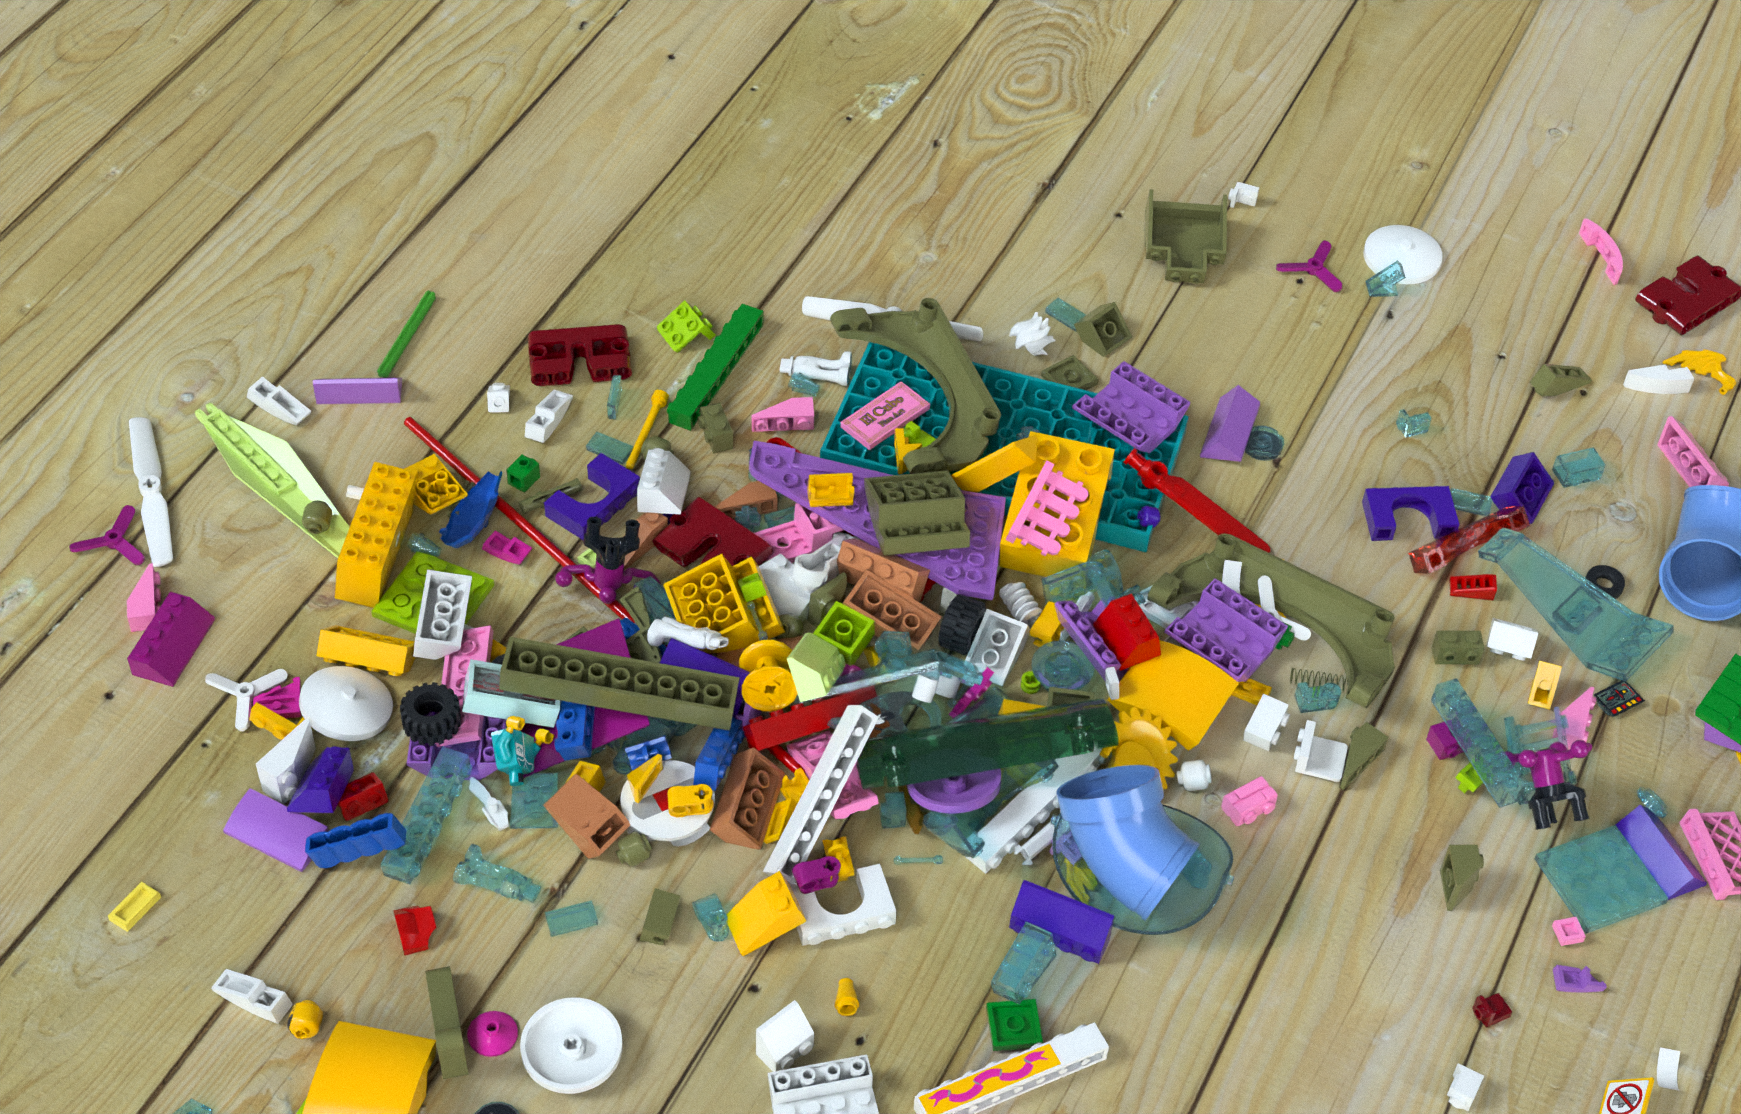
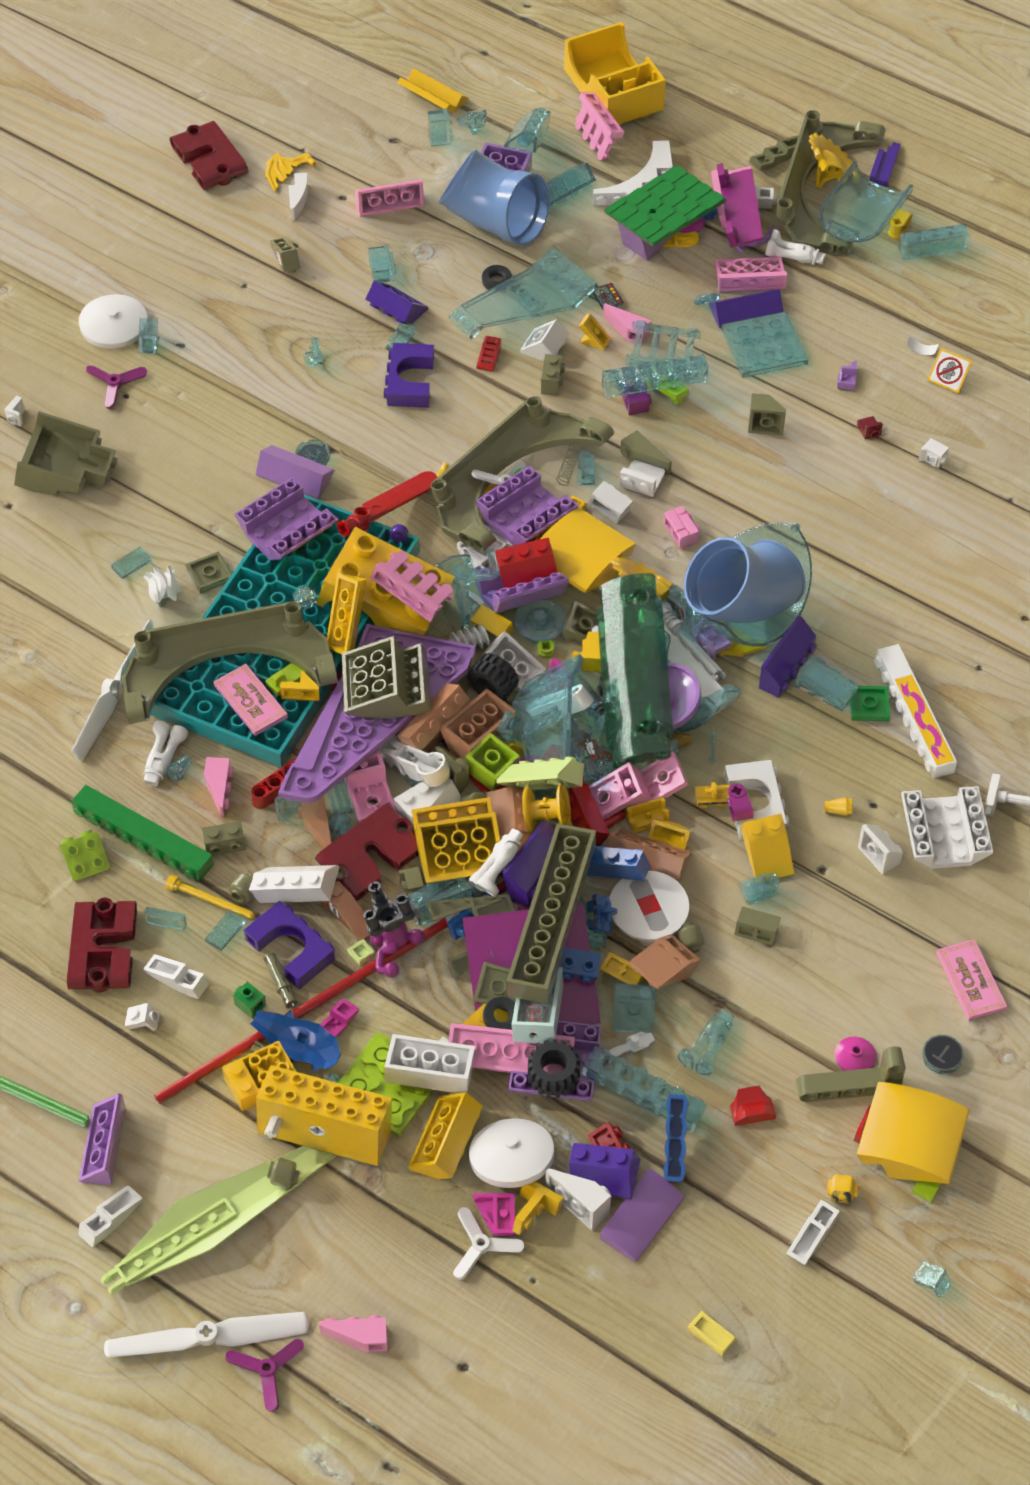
camera: 80 degrees left, 5 degrees up
(170, 640) = (410, 1309): magenta slope -> none
(516, 750) = (589, 1010): teal torso -> none
(571, 918) = (750, 991): clear light blue tile -> none
(571, 1045) = (879, 992): white dish -> none
(644, 776) = (632, 917): yellow slope -> none
(688, 800) = (660, 883): yellow piece -> none
(752, 587) = (446, 810): lime slope -> none
(762, 634) = (500, 811): clear light blue hinge -> none
(822, 791) = (669, 787): white brick -> none
(830, 489) = (353, 739): yellow hinge -> none
(1103, 329) = (159, 537): olive slope -> none
(1112, 683) = (578, 581): white tile -> none
(1194, 775) = (654, 555): white head -> none
(1231, 574) = (466, 496): white sticker -> none
(1443, 550) = (433, 320): clear red arch -> none
(1550, 782) = (700, 340): wheel -> none
(1568, 931) = (809, 370): bright pink plate -> none
(1595, 235) = (144, 191): bright pink slope -> none

